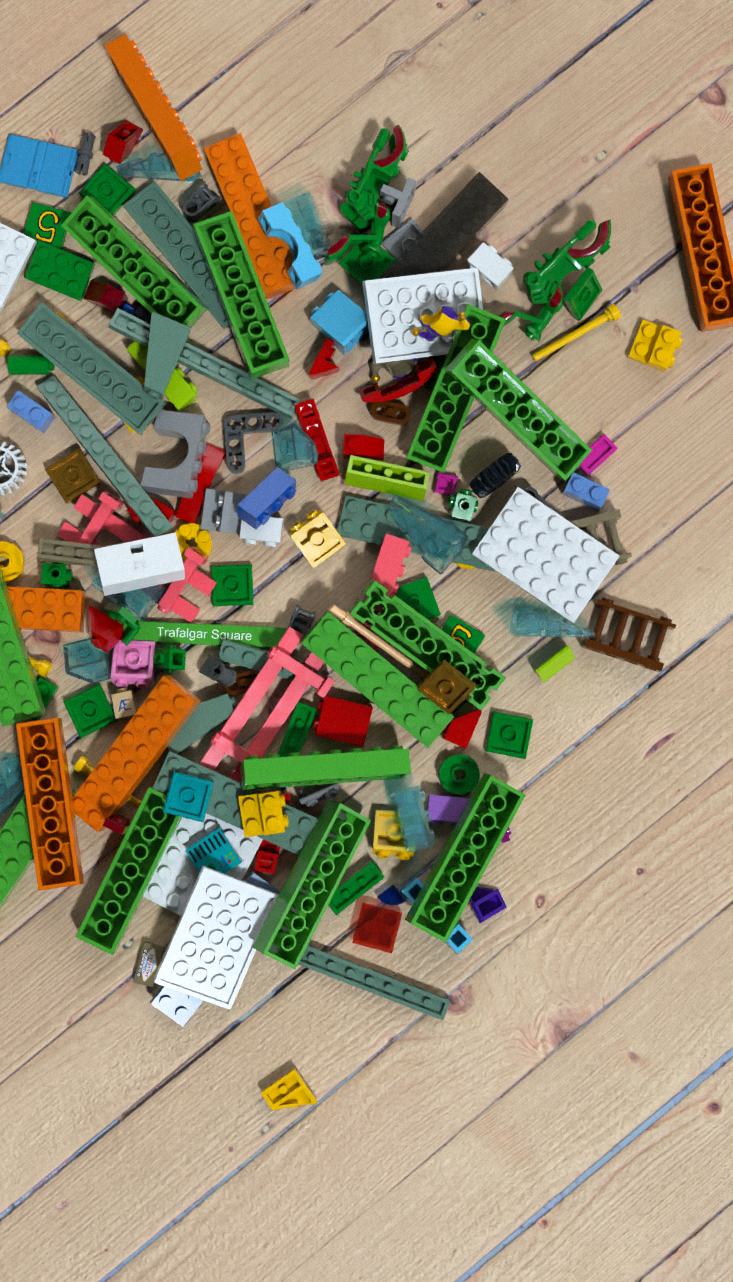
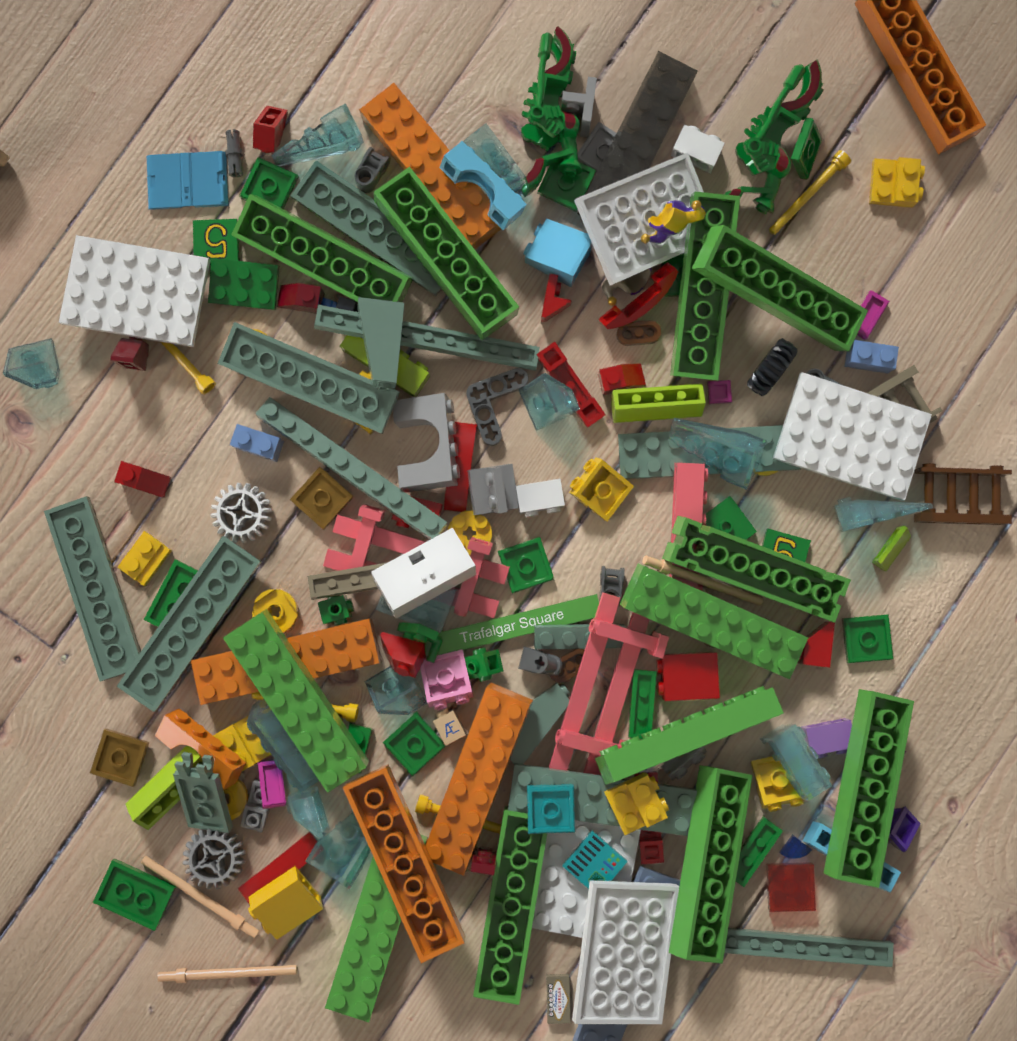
camera: 15 degrees left, 0 degrees up
(29, 365) = (240, 393): green brick -> none
(154, 107) = (295, 79): orange brick -> none
(266, 498) = (537, 462): brick -> none
(446, 686) = (793, 609): pearl gold plate -> none
(447, 775) = (839, 689): green plate -> none
(462, 511) = (746, 408): brick -> none

